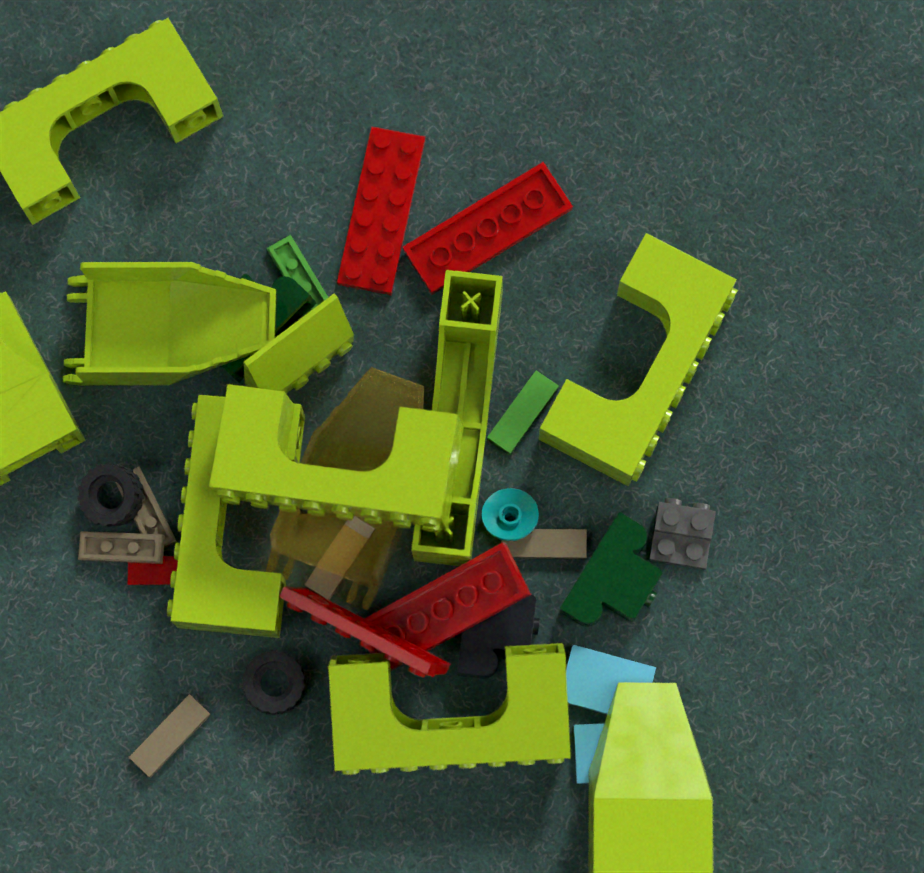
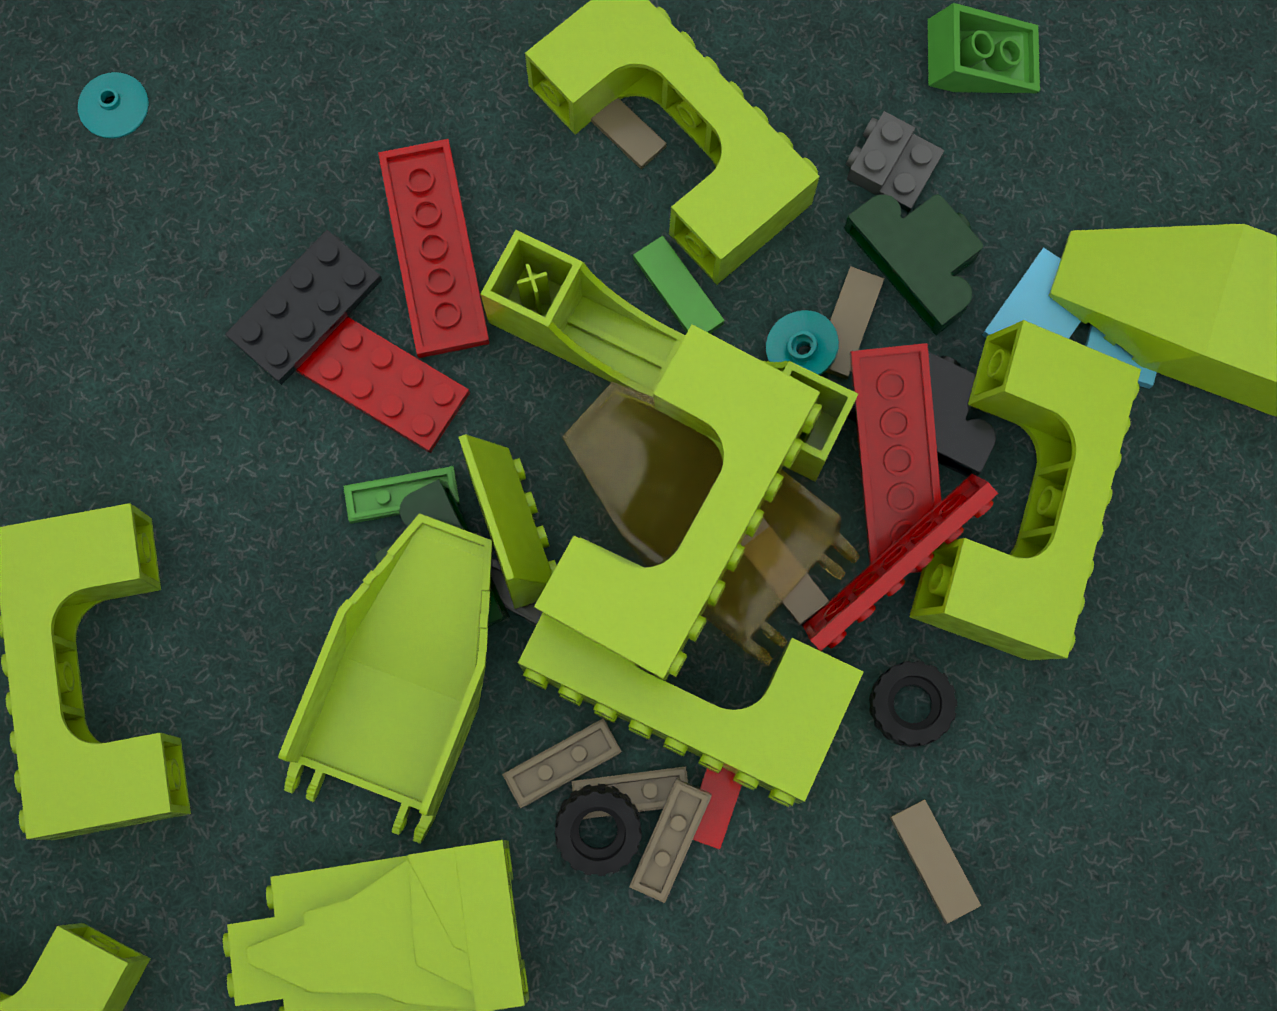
camera: 75 degrees left, 0 degrees up
(149, 456) = (562, 763): none -> dark tan tile
(406, 156) = (304, 307): none -> black plate
(632, 333) = (629, 133): none -> dark tan tile
(796, 572) = (982, 52): none -> bright green slope

